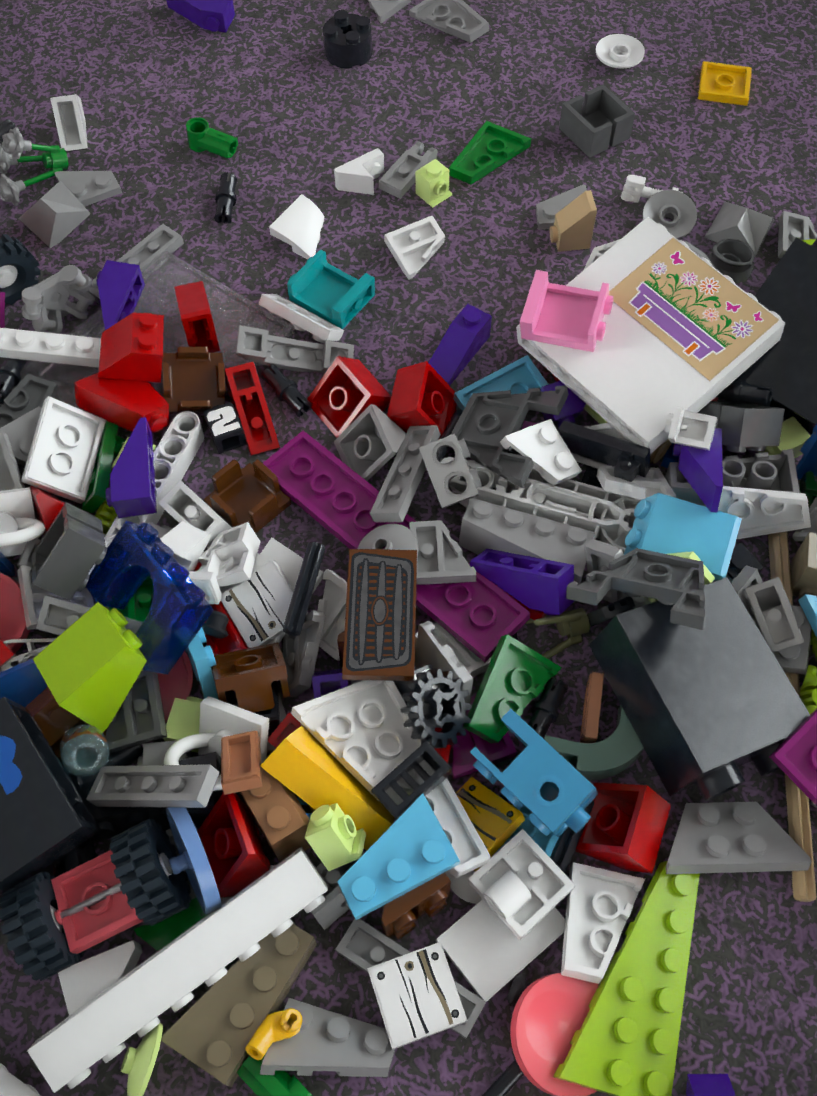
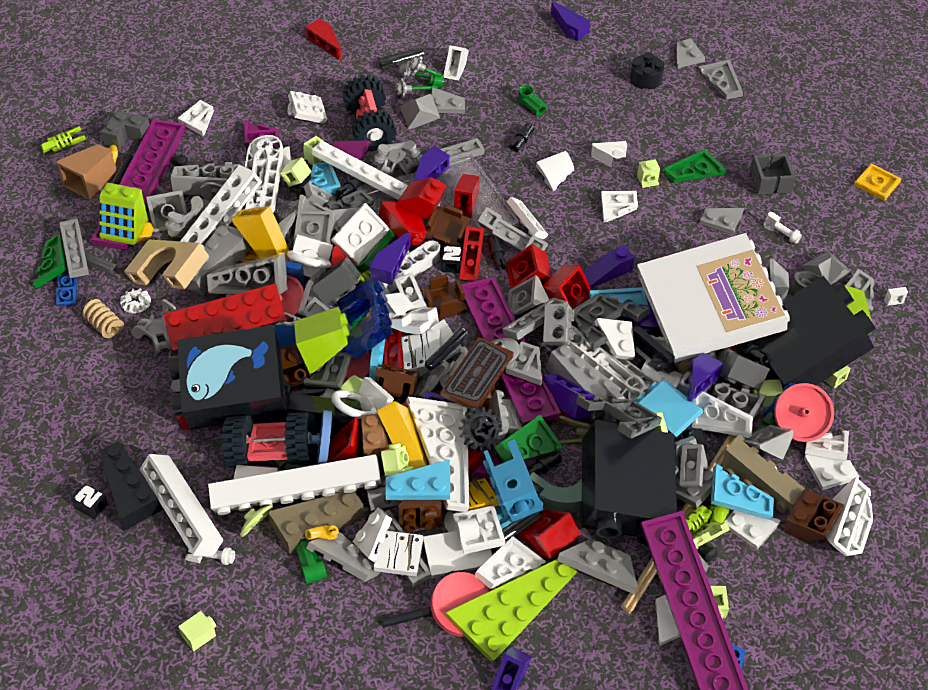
camera: 25 degrees right, 10 degrees down
(88, 761) = (294, 382): clear light blue head -> none
(154, 786) = (322, 399): light grey plate -> none
(208, 583) = (397, 328): white tile -> none
(216, 625) = (392, 349): black piece -> none
(241, 762) = (368, 407): nougat tile -> none
(330, 291) = (552, 210): teal panel -> none
(357, 983) = (372, 533): none -> white wing
(402, 173) = (631, 162): light grey hinge -> none
(432, 758) = (454, 446): black slope -> none
(564, 314) = (664, 266): bright pink panel -> none
(575, 224) = (718, 226): tan slope -> none
(592, 708) = (568, 472): nougat tile -> none
(620, 51) = (818, 138): white dish -> none
(674, 206) = (785, 238): light grey dish -> none
(690, 428) = (698, 351): white bracket -> none

